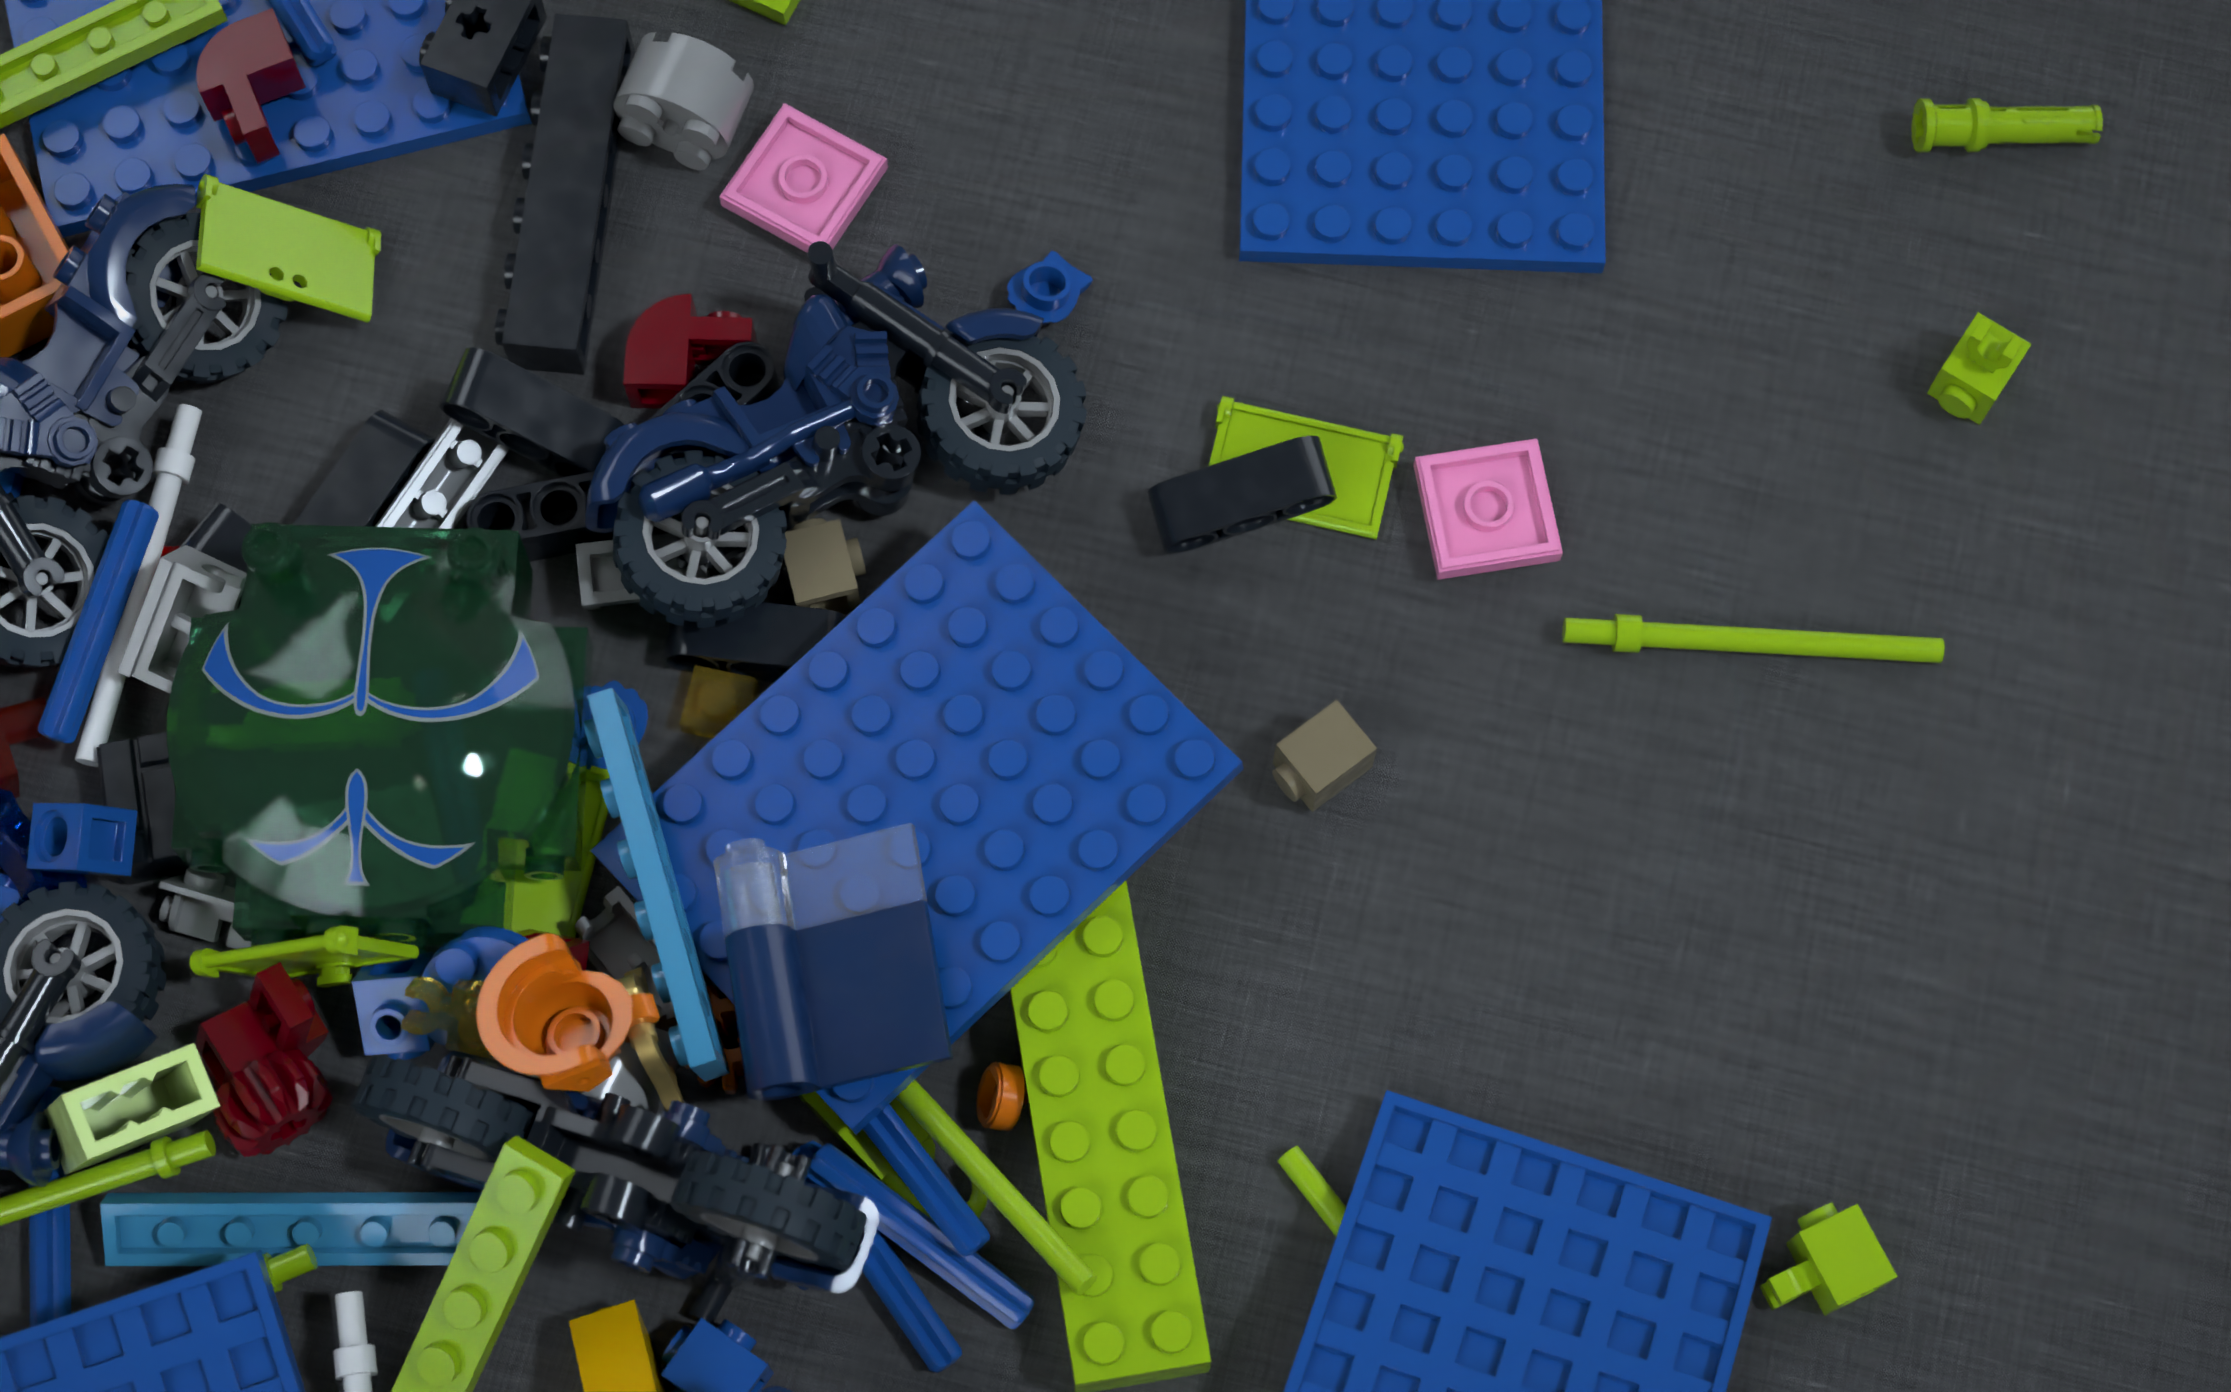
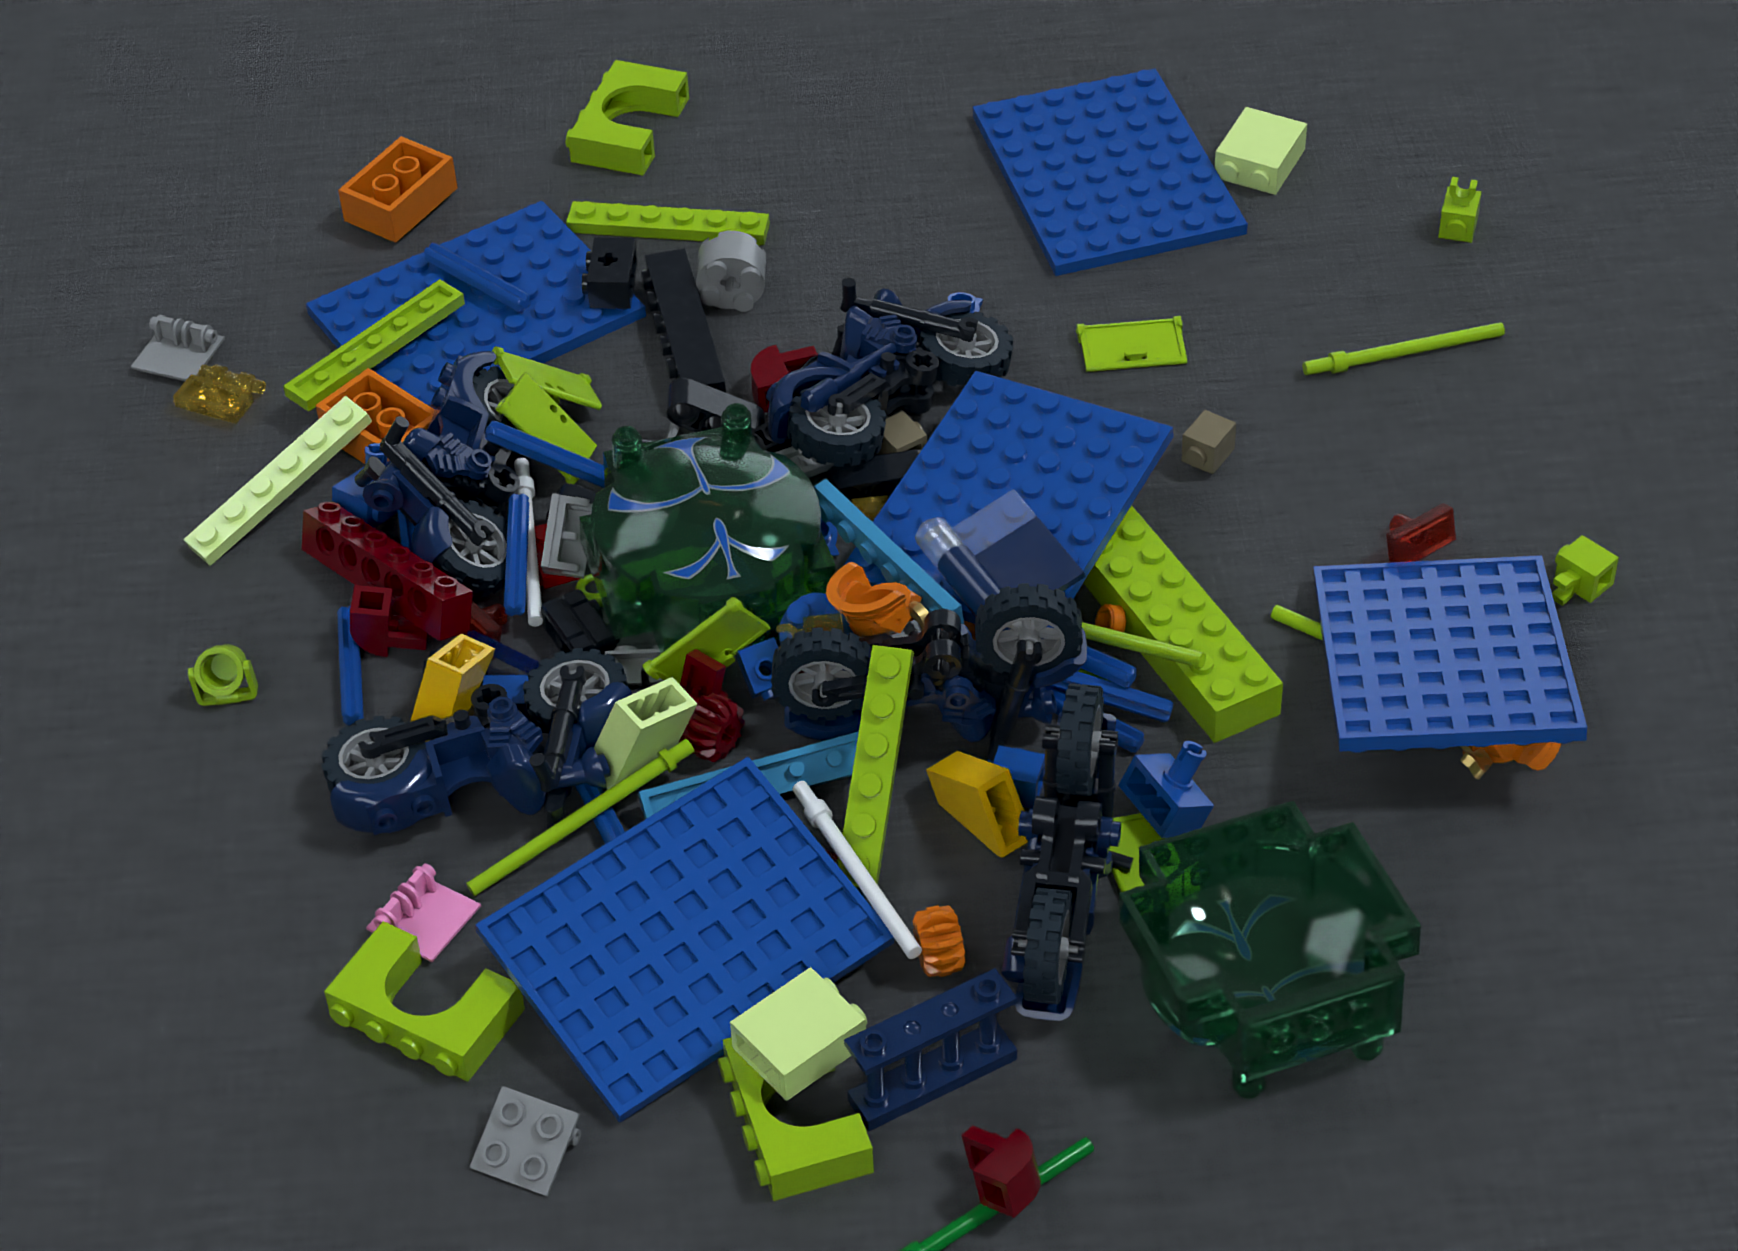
camera: 15 degrees left, 25 degrees down
(82, 839) = (554, 632): blue brick -> none
(216, 428) = (545, 453): none -> blue axle
(234, 360) = (539, 415): none -> lime door
(241, 71) = (492, 318): dark red brick -> none
(803, 180) = (807, 297): bright pink plate -> none
(1242, 494) = (1109, 351): black beam -> none
(1487, 509) = (1239, 331): bright pink plate -> none
(1590, 1082) = (1420, 536): none -> clear red tile
(1697, 100) = (1260, 150): none -> yellowish green brick
(1977, 124) = (1406, 127): lime pin -> none

